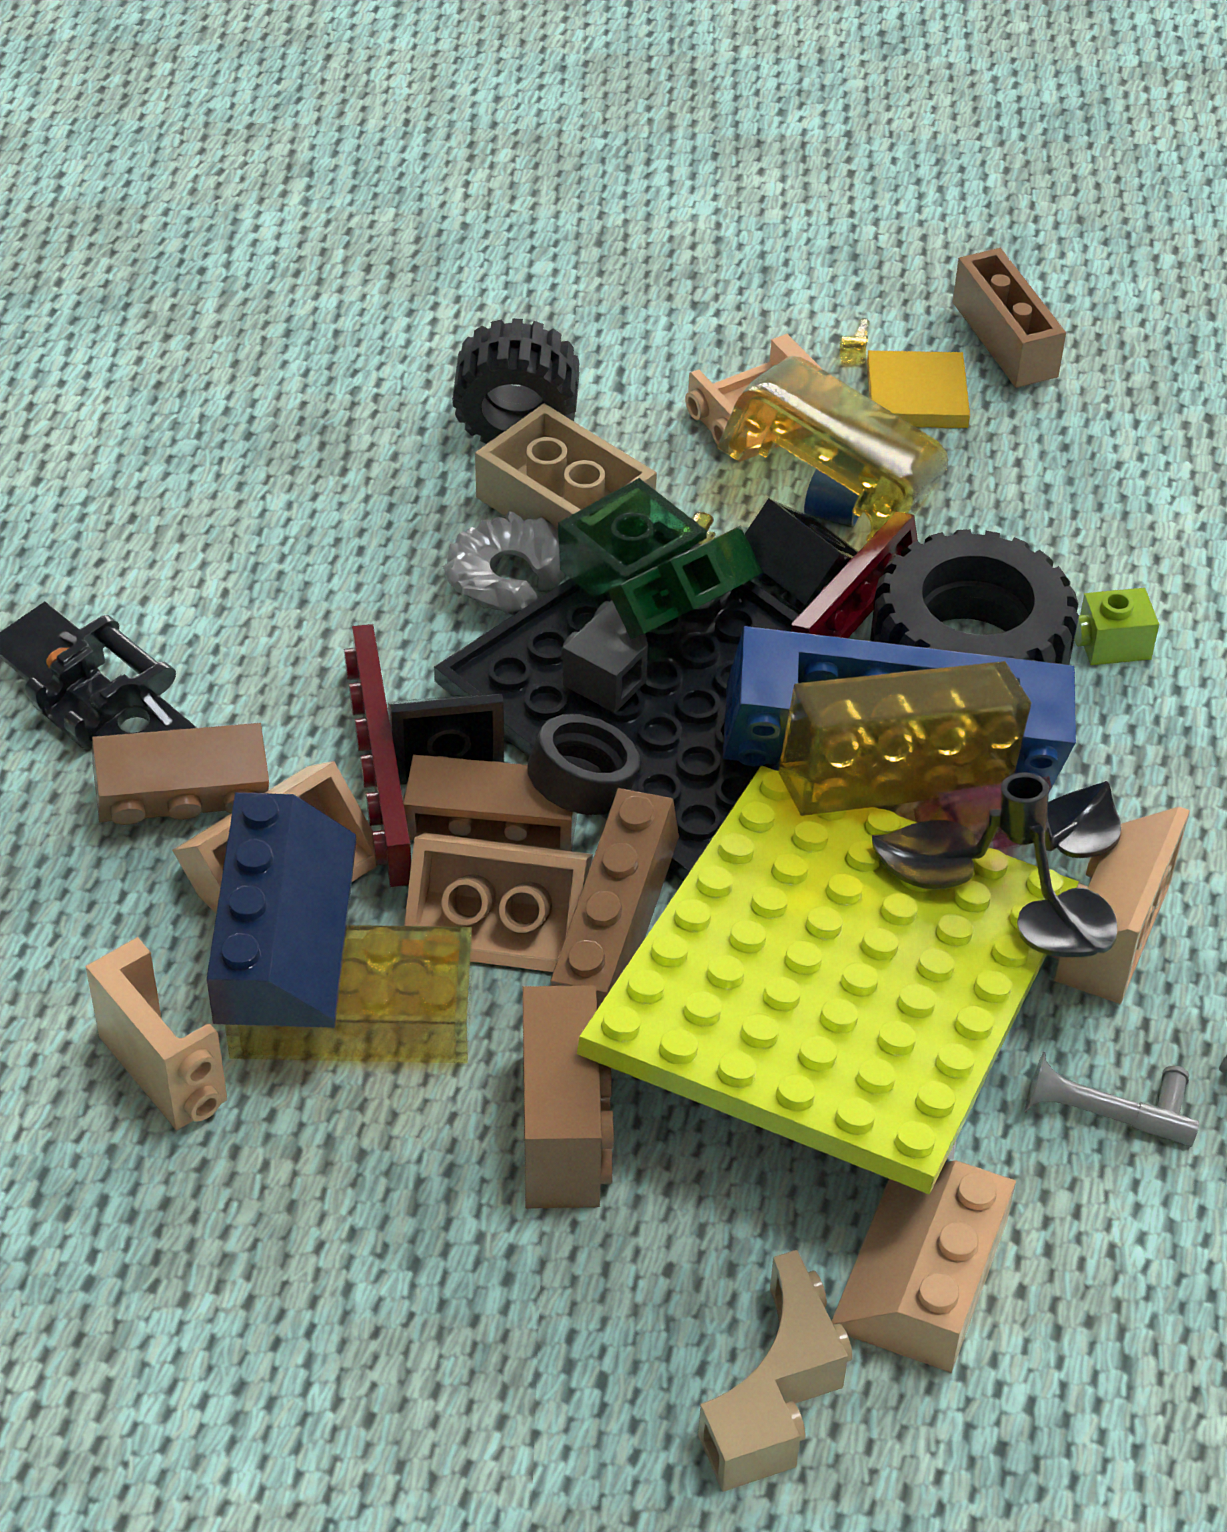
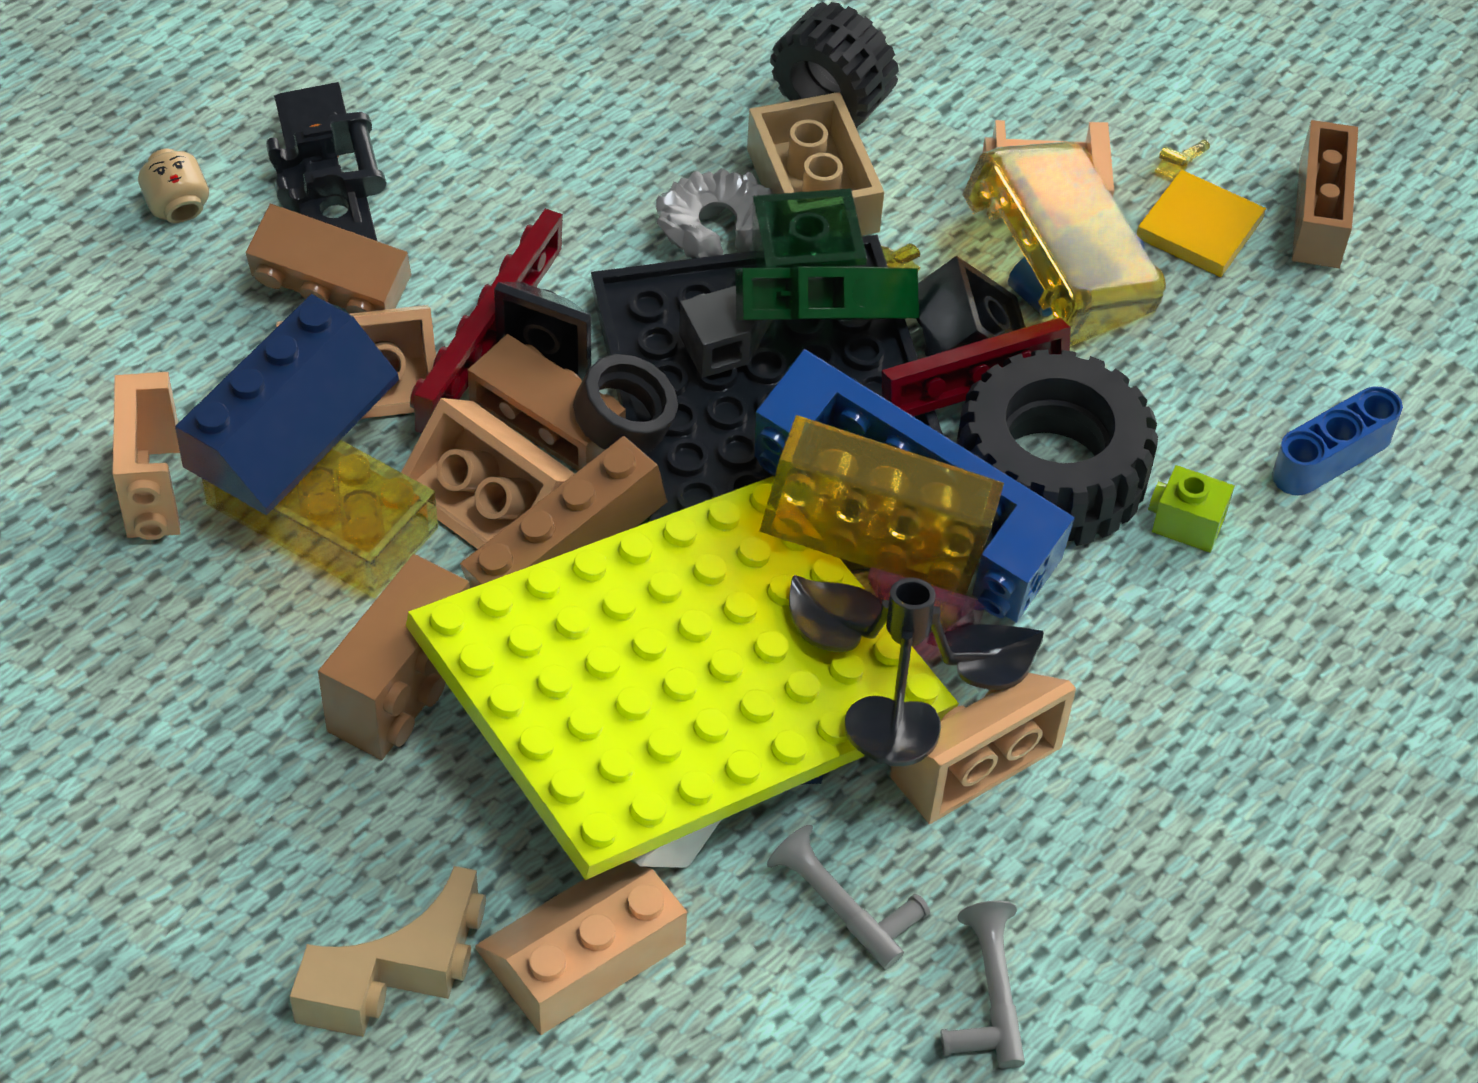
camera: 30 degrees right, 5 degrees up
(1181, 516) = (1336, 440): none -> blue beam

